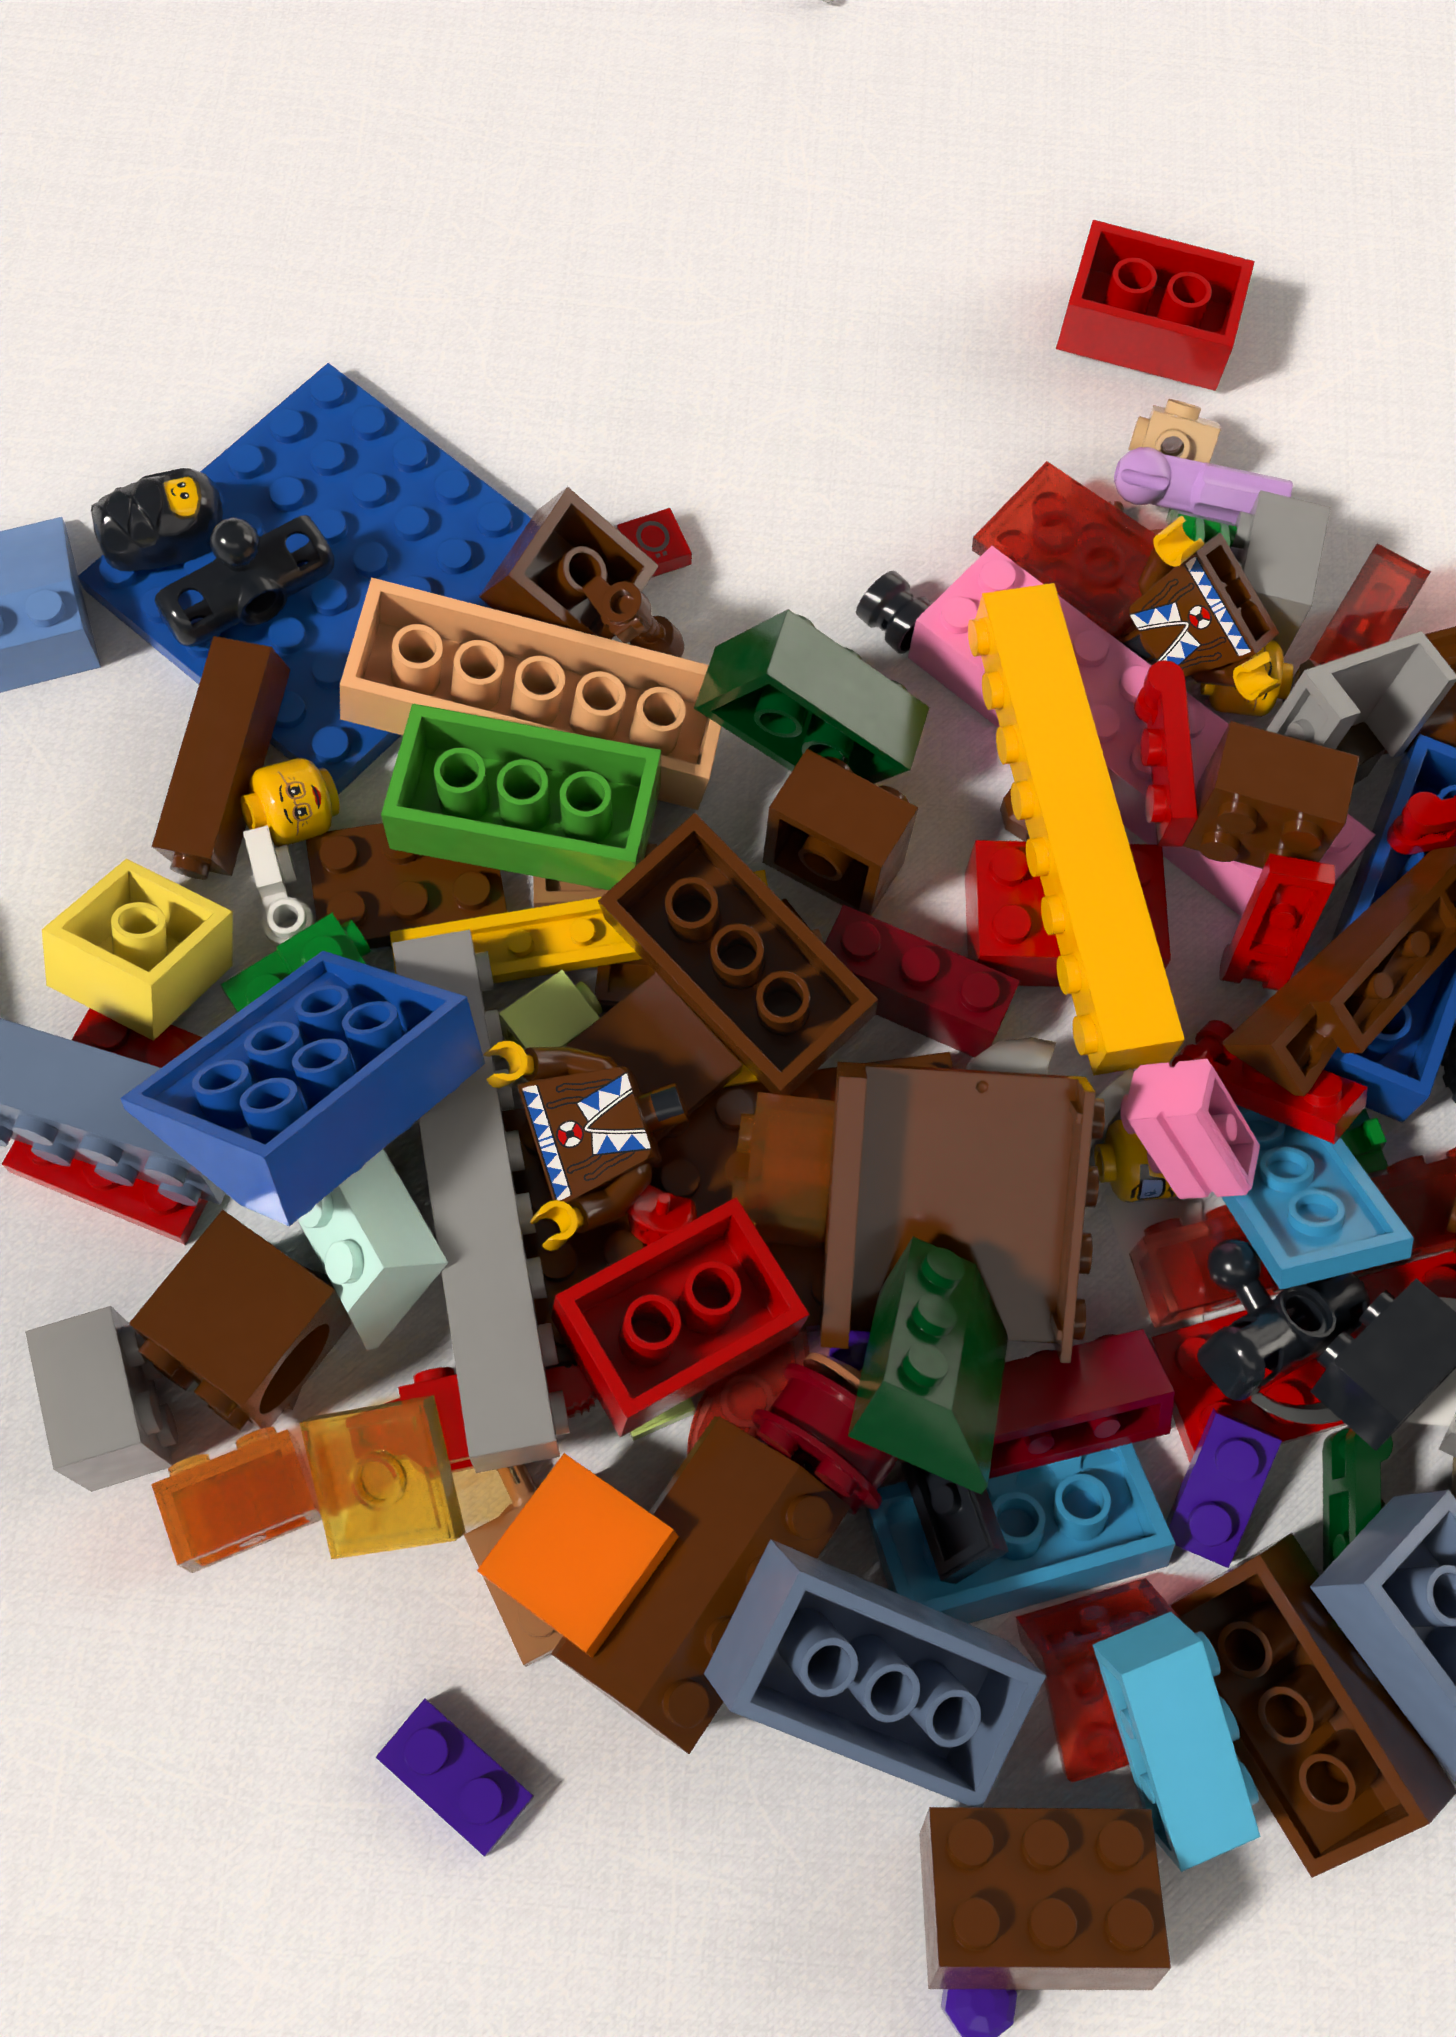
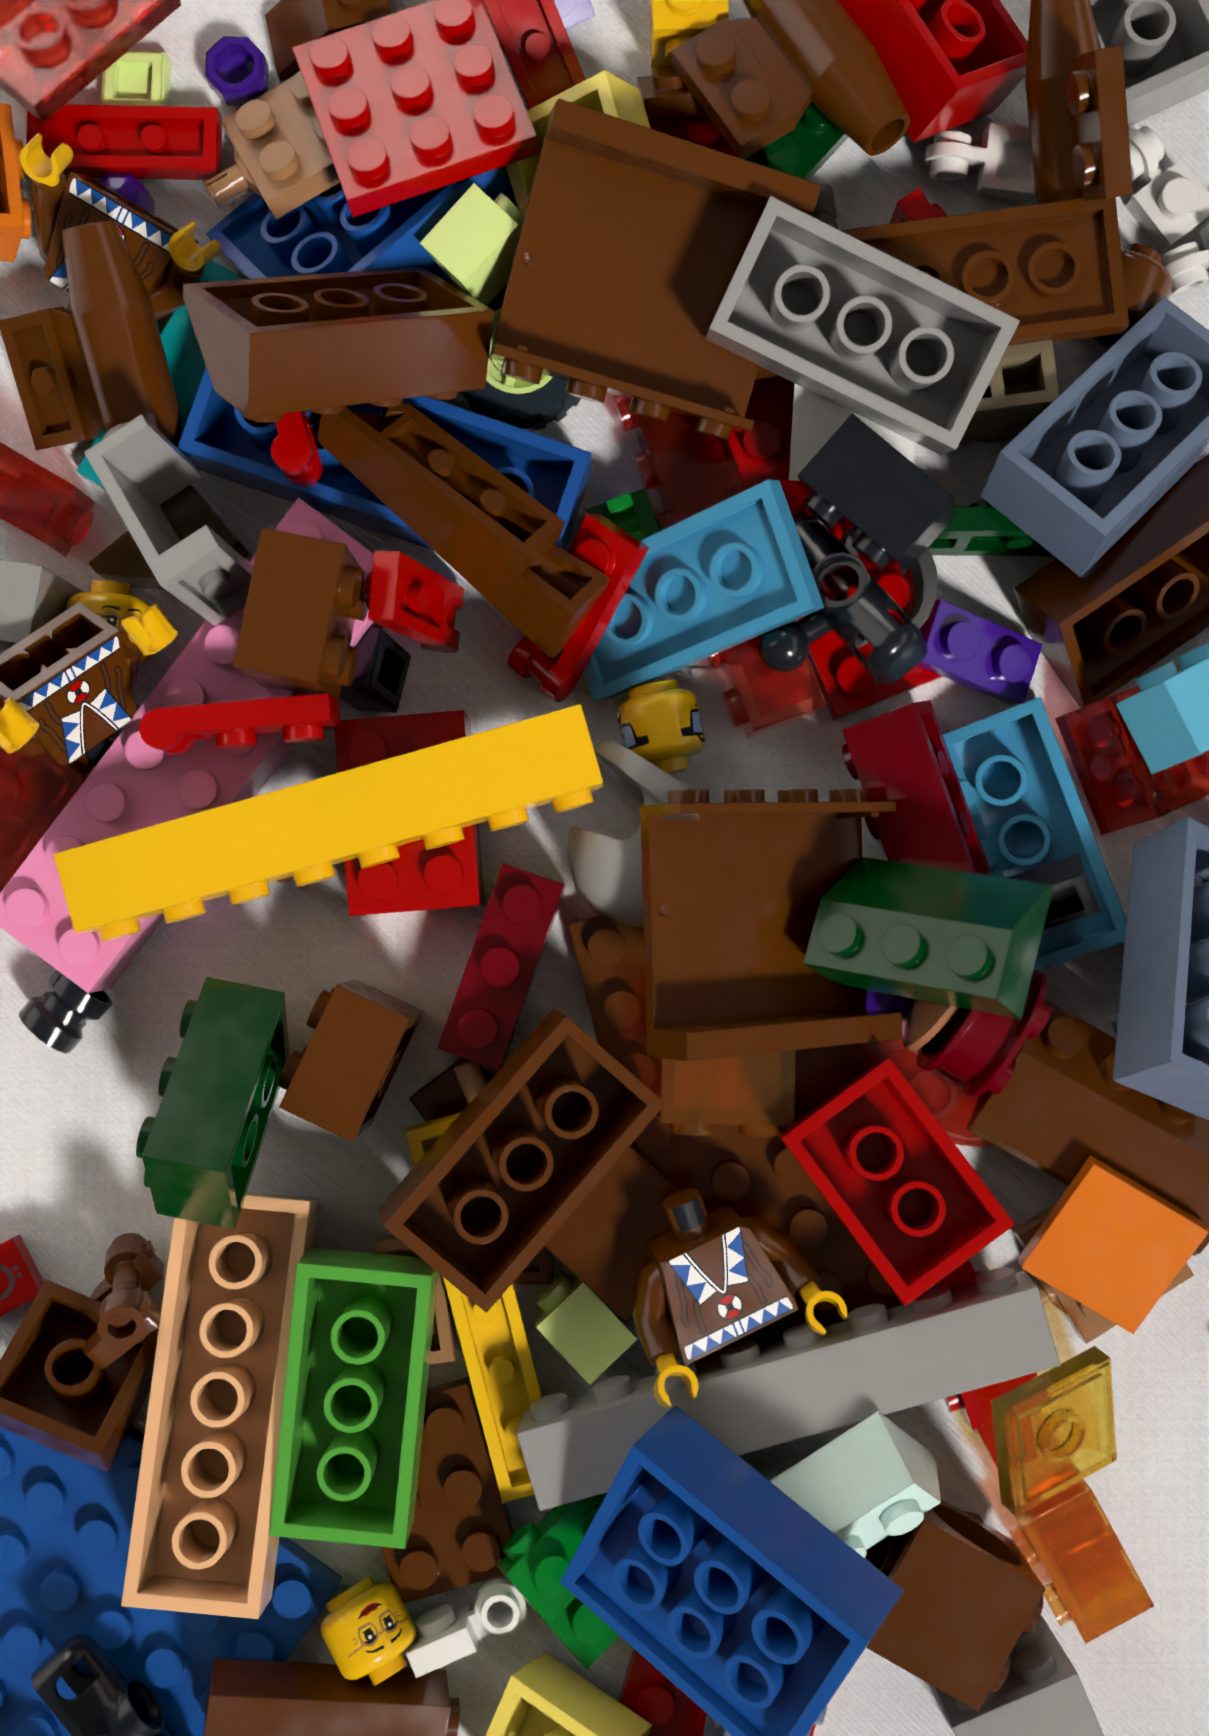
camera: 90 degrees left, 20 degrees up
(659, 1214) = (781, 1197): red piece -> none
(1191, 1129) = (667, 694): bright pink brick -> none
(1203, 896) = (378, 674): none -> black slope

